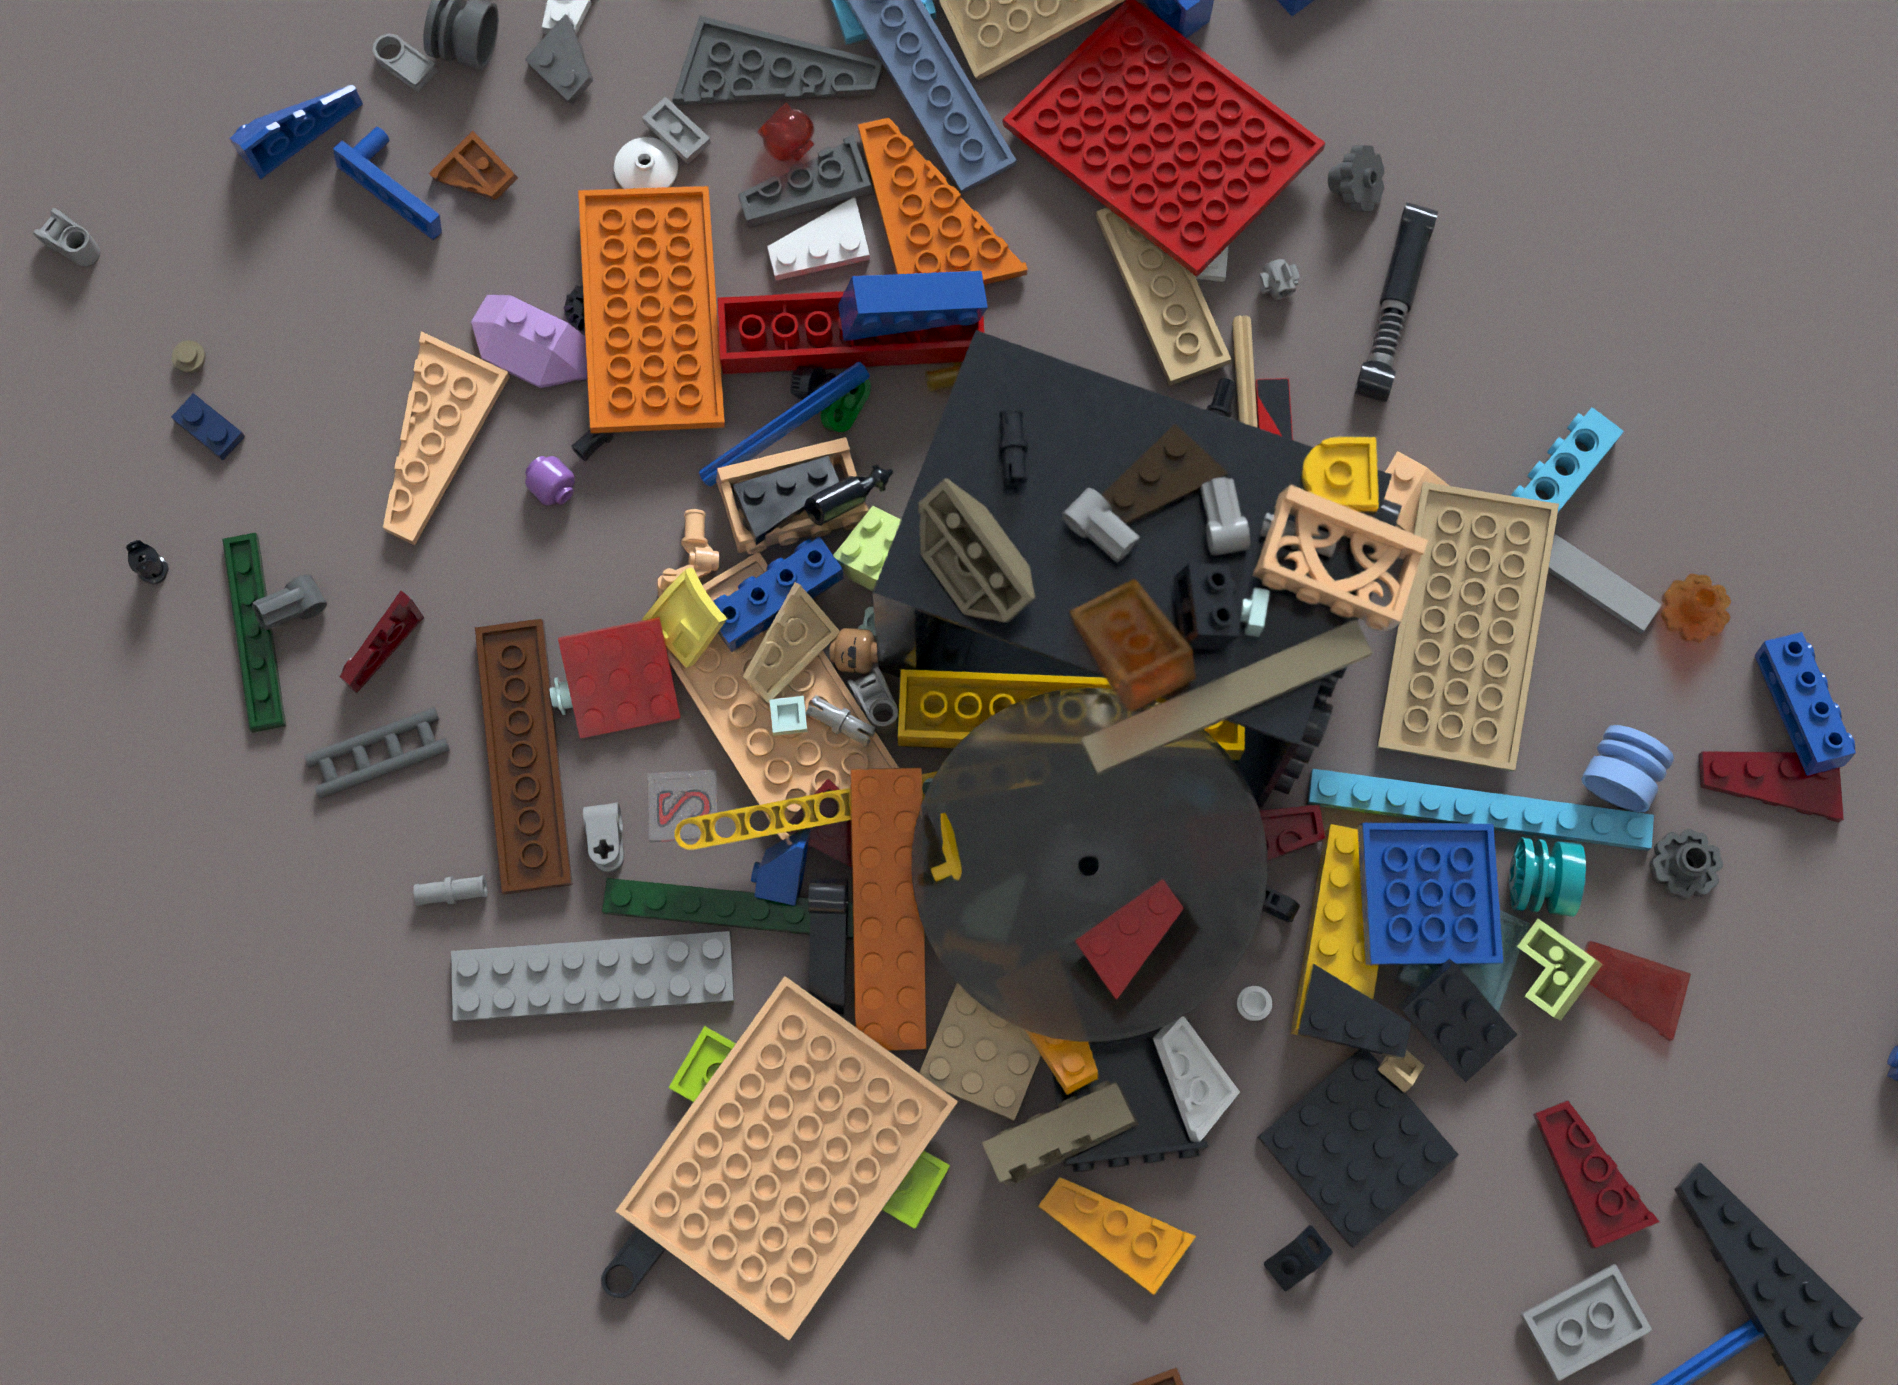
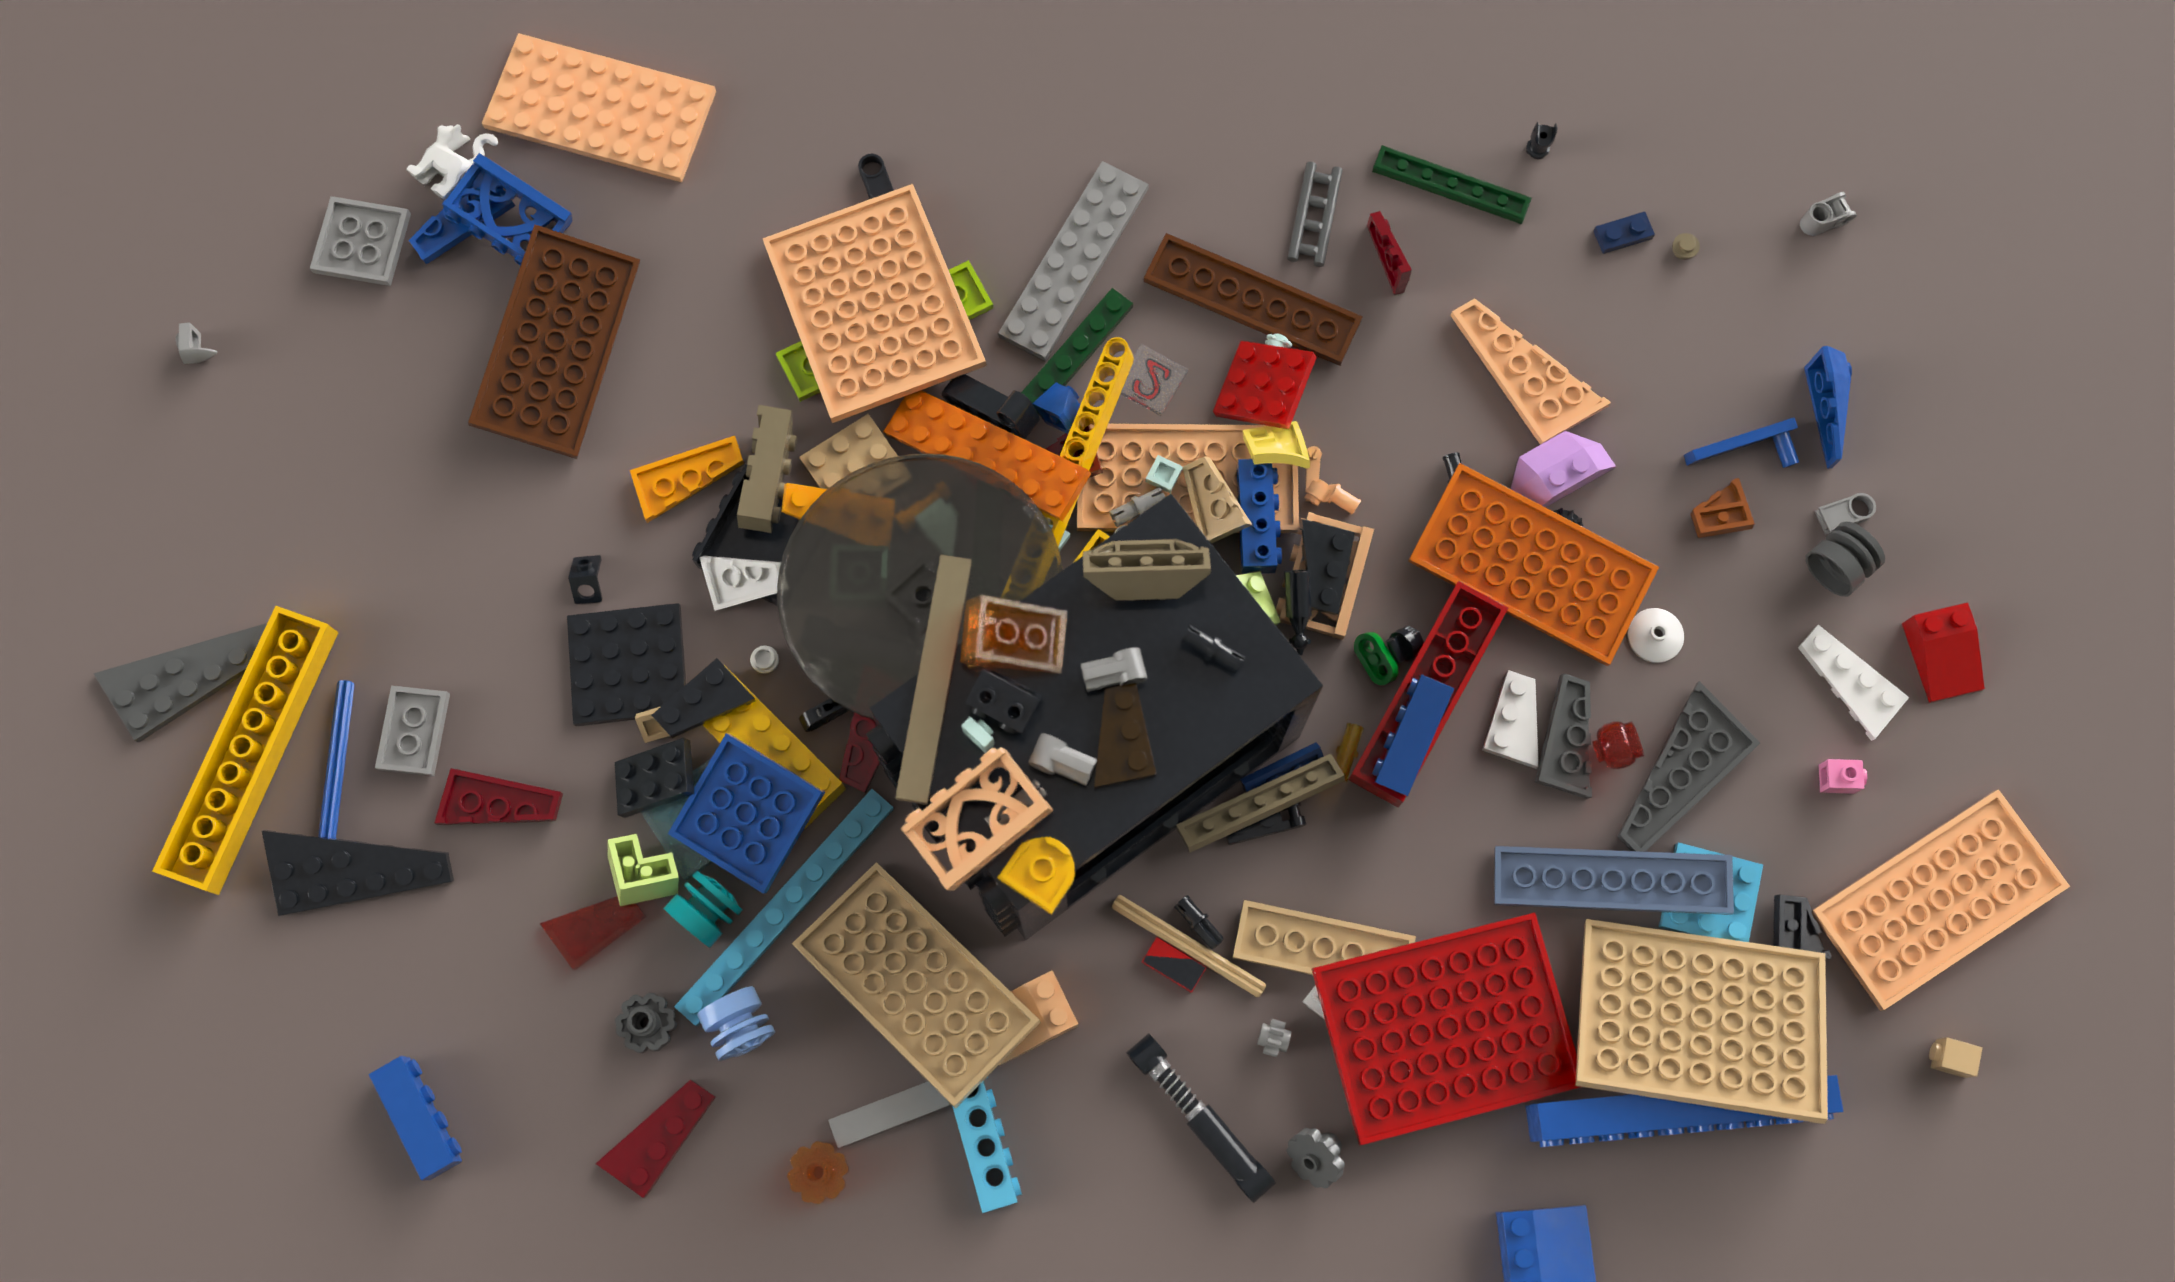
camera: 125 degrees right, 0 degrees up
(297, 599) = (1455, 220): dark grey piece -> none
(450, 890) = (1189, 205): light grey pin -> none
(549, 480) = (1441, 424): medium lavender head -> none
(561, 60) = (1780, 622): flat silver wing -> none
(604, 830) = (1164, 316): light grey piece -> none
(676, 130) = (1671, 670): light grey plate -> none
(787, 421) = (1383, 603): blue axle -> none
(925, 216) = (1478, 806): orange wing -> none
(950, 851) = (988, 499): yellow bar -> none
(1129, 935) = (852, 578): red wing -> none
(1805, 703) = (692, 1195): blue brick -> none

